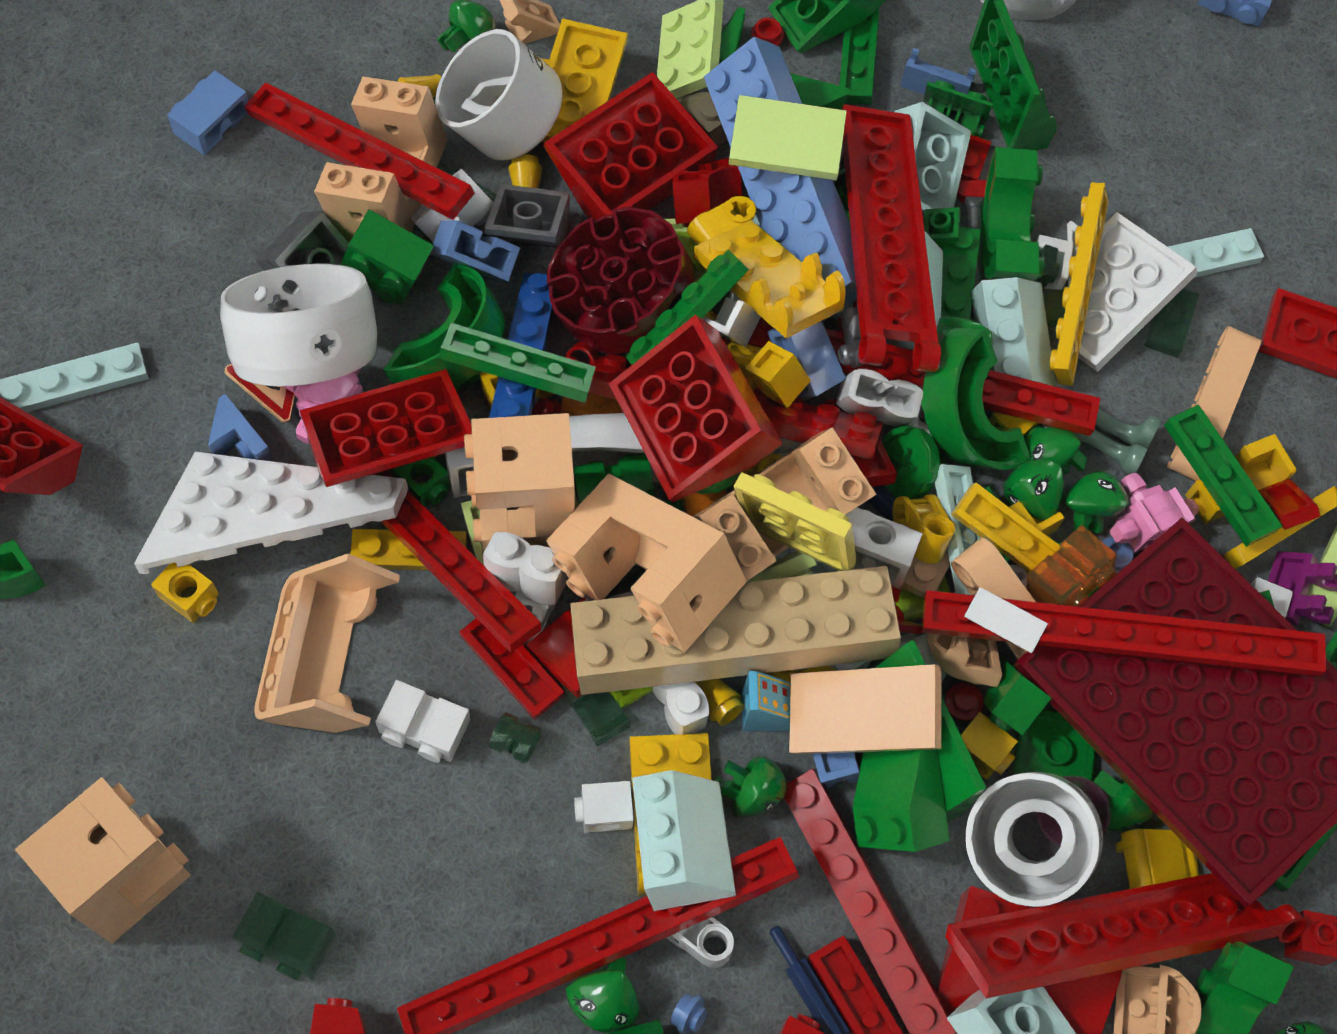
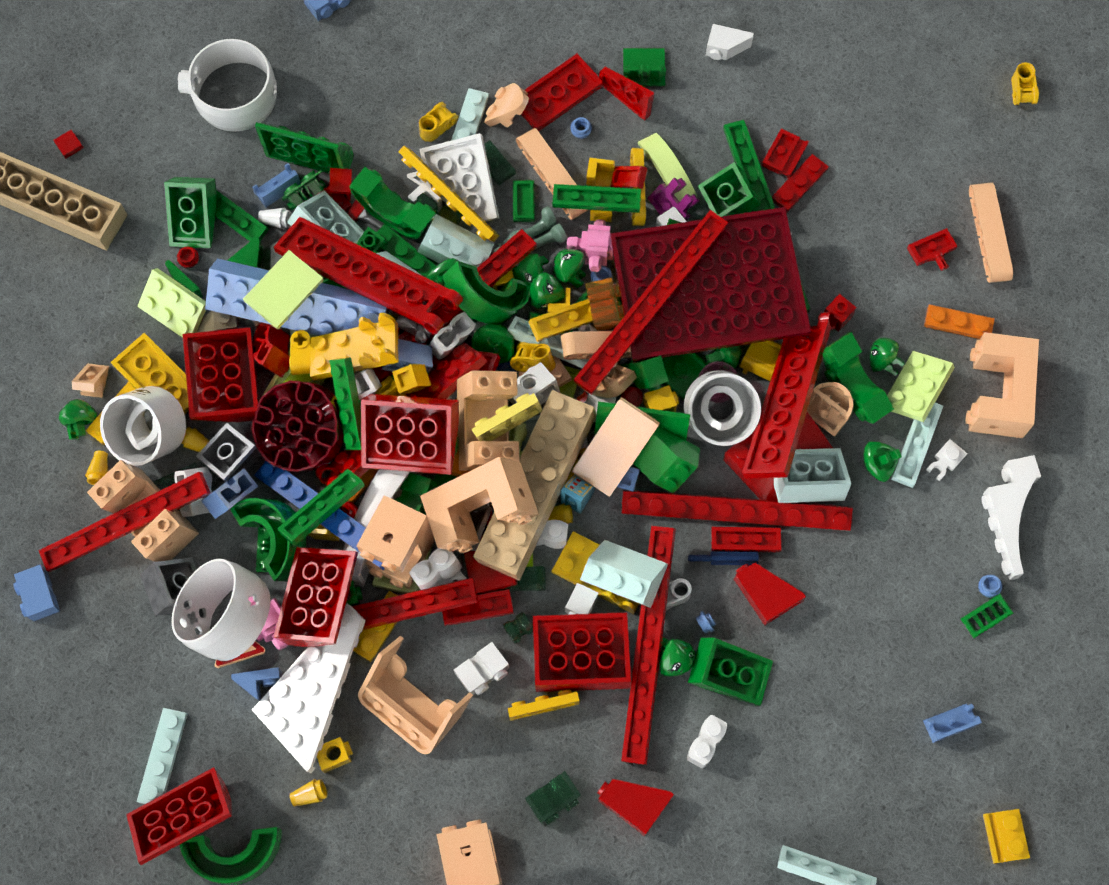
camera: 50 degrees left, 5 degrees up
(115, 592) = (309, 793): none -> yellow cone
(386, 256) = (204, 543): green brick -> none
(419, 840) = (543, 704): none -> yellow plate
(528, 848) = (581, 652): none -> red slope
(755, 787) = (616, 524): green piece -> none
(890, 95) = (275, 217): none -> white cone
(997, 136) = (340, 181): none -> red panel
(1005, 620) = (612, 351): white sticker -> none
(1146, 390) = (523, 201): none -> green tile
(1171, 214) = (439, 120): none -> yellow piece
(1269, 288) = (508, 103): none -> light nougat slope
(1314, 395) = (581, 122): none -> medium blue plate

